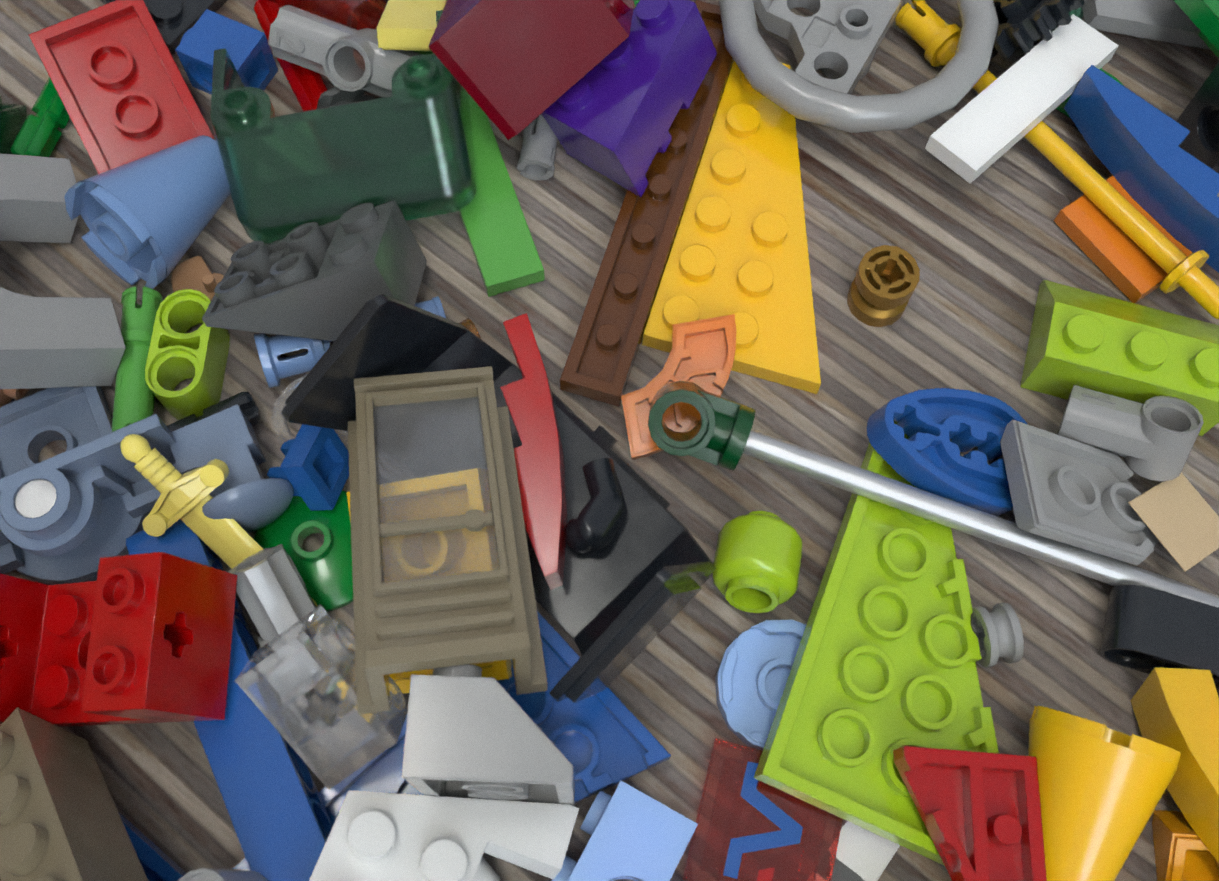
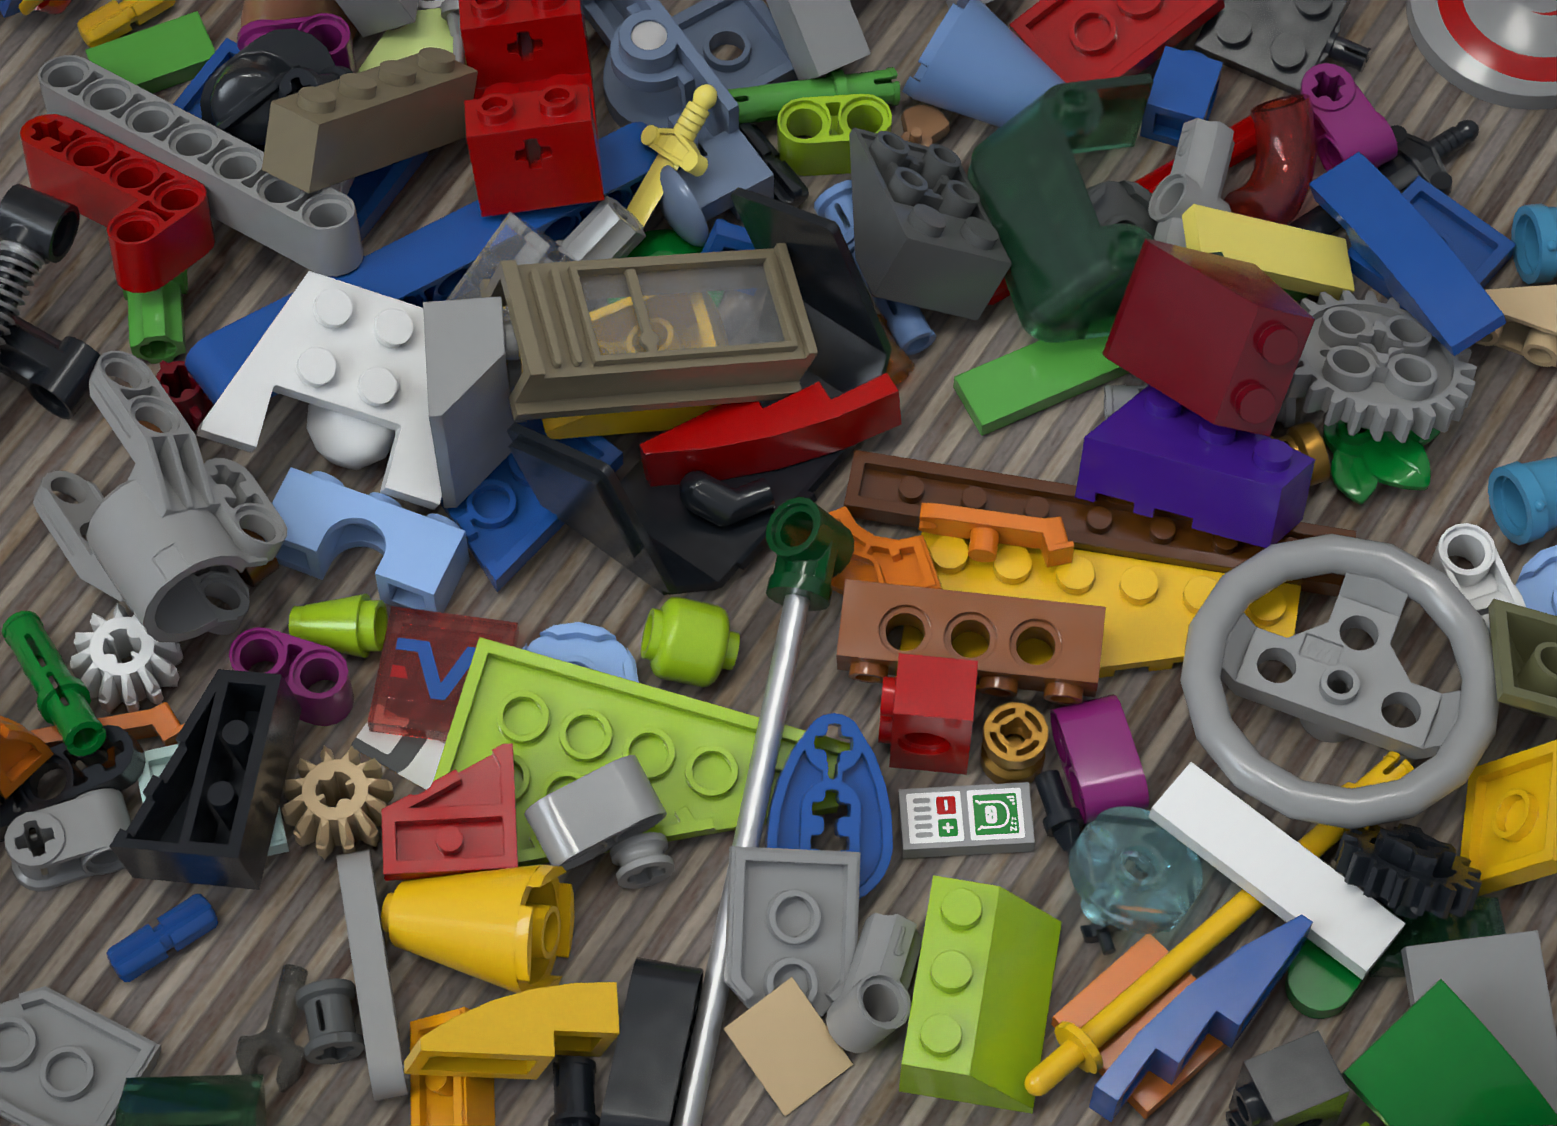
camera: 85 degrees right, 5 degrees down
(690, 218) = (991, 527): none -> orange piece
(761, 377) = (1005, 622): none -> dark orange brick
(870, 337) = (929, 713): none -> red brick
(900, 215) = (1098, 756): none -> magenta beam
(945, 337) = (966, 820): none -> tile
(954, 262) = (1064, 824): none -> black piece
(972, 669) = (595, 813): none -> light grey beam
(1039, 222) = (1114, 894): none -> clear light blue plate

